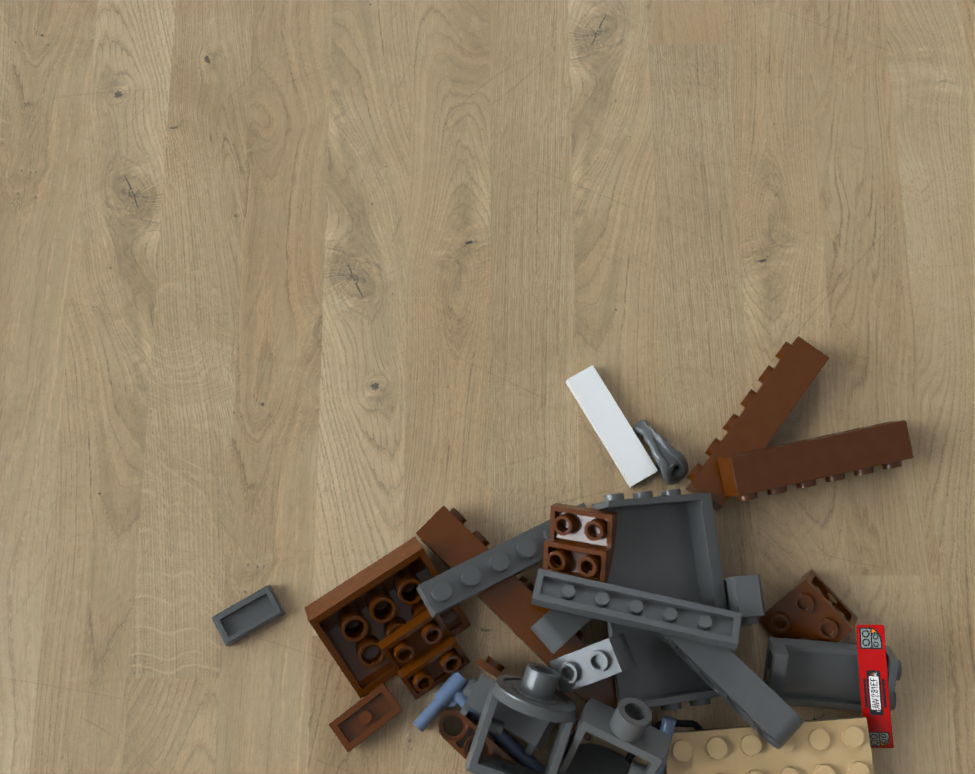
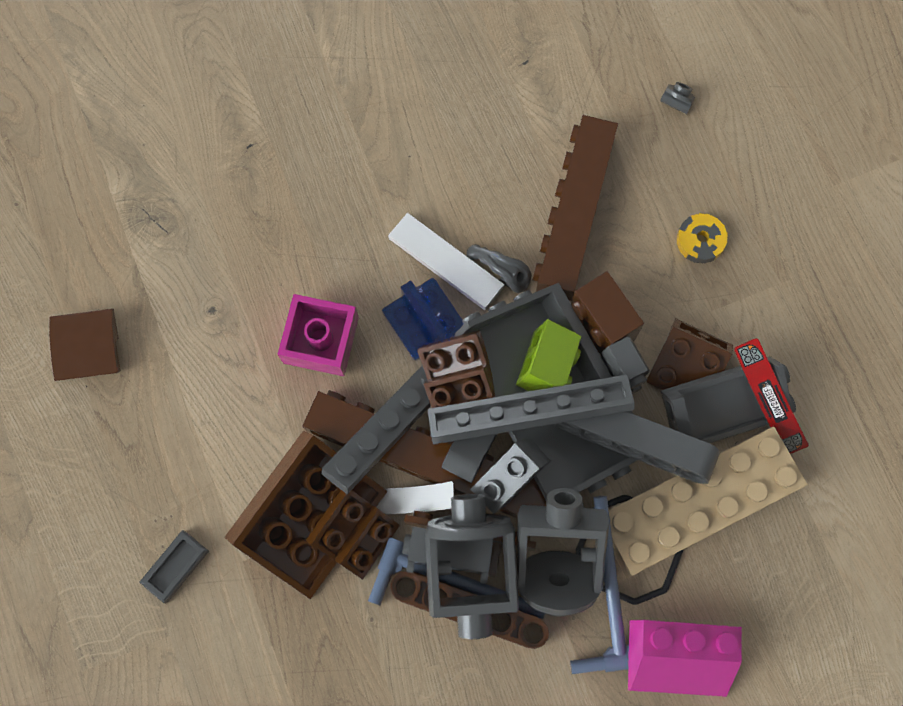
camera: 20 degrees left, 0 degrees up
(246, 373) = (84, 344): none -> reddish brown slope
(365, 717) = (321, 614): reddish brown plate -> none
(464, 451) = (318, 335): none -> dark pink brick
(496, 645) = (417, 498): none -> white sticker
(569, 472) = (422, 316): none -> clear blue bracket
(673, 564) = (549, 357): none -> lime brick
(744, 541) = (605, 312): none -> reddish brown brick
(814, 459) = (639, 216): reddish brown brick -> none
(882, 500) = (703, 225): none -> yellow piece
(899, 352) = (678, 97): none -> dark grey plate

